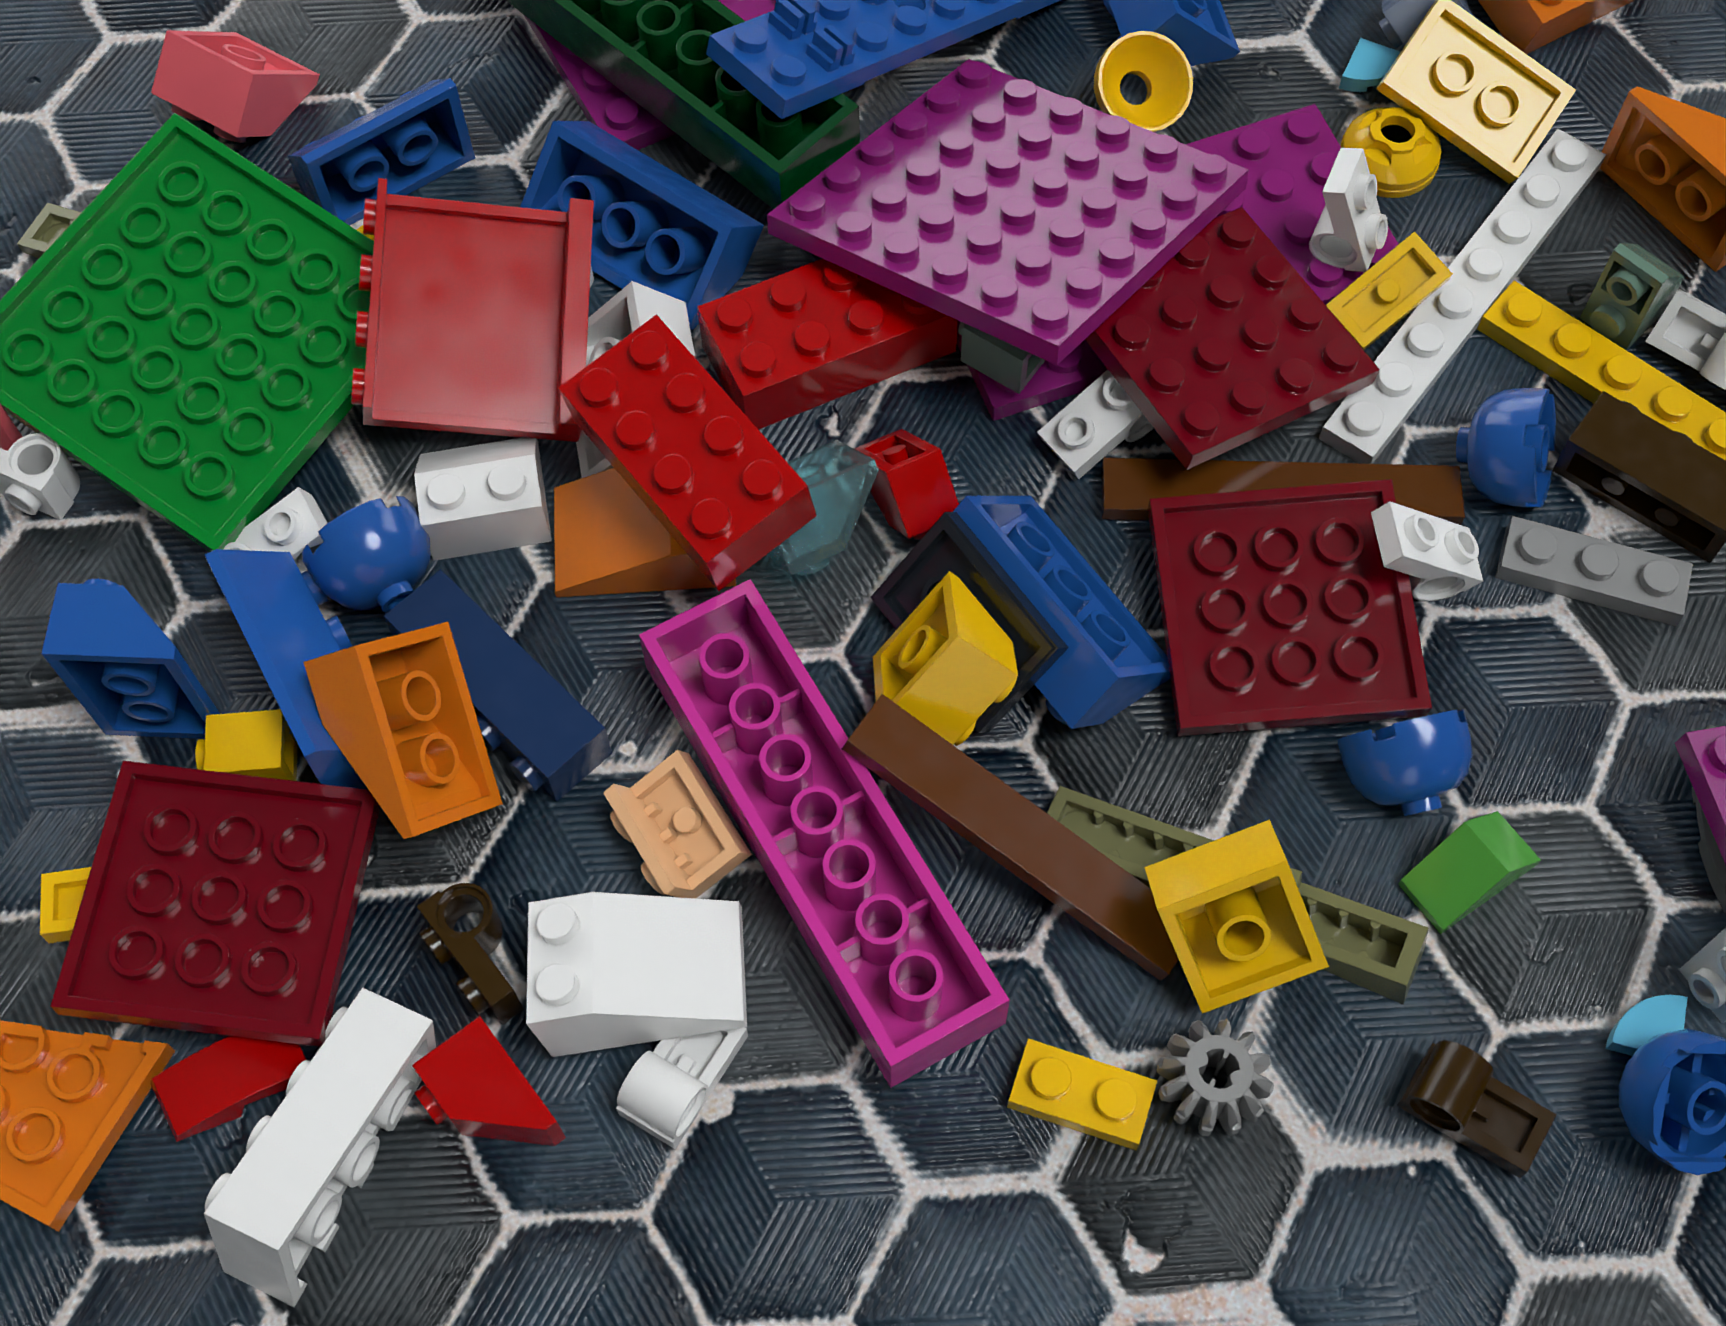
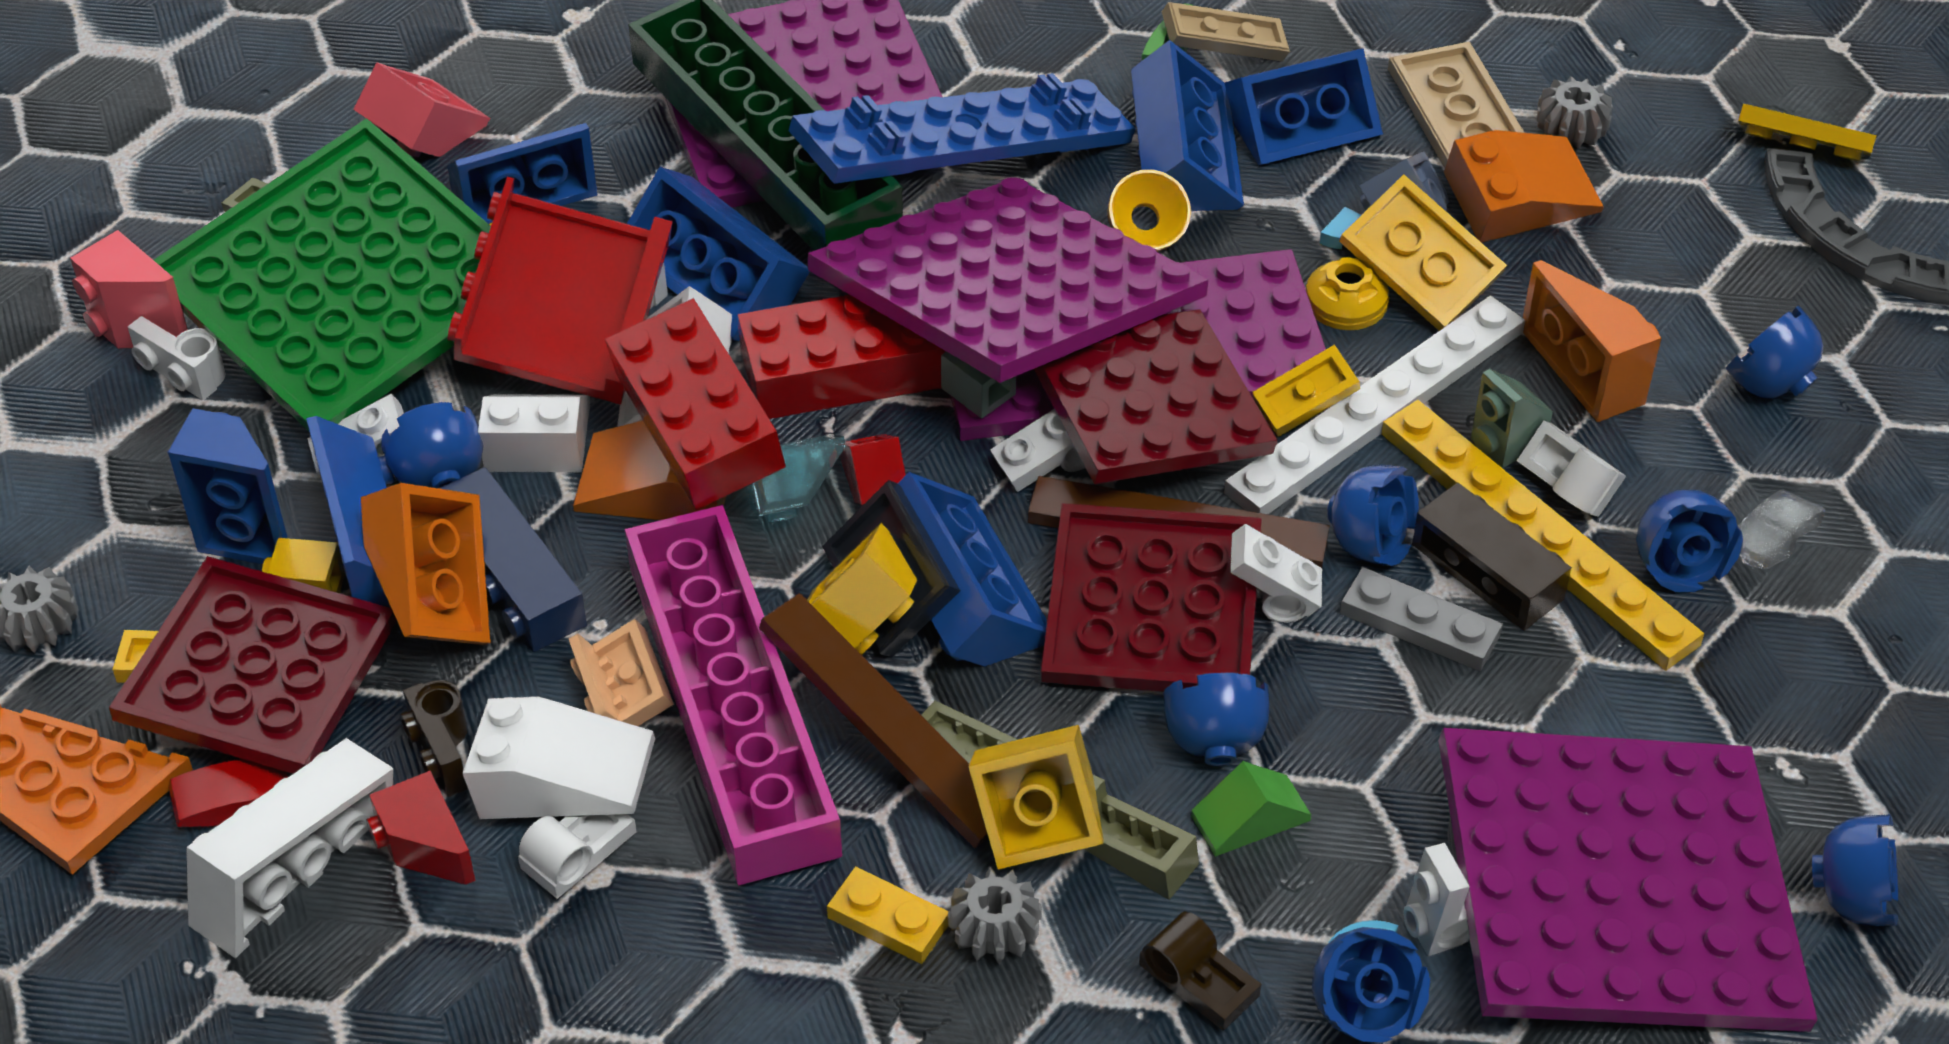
camera: 10 degrees right, 15 degrees down
(1351, 219) = (1284, 326): white plate -> none

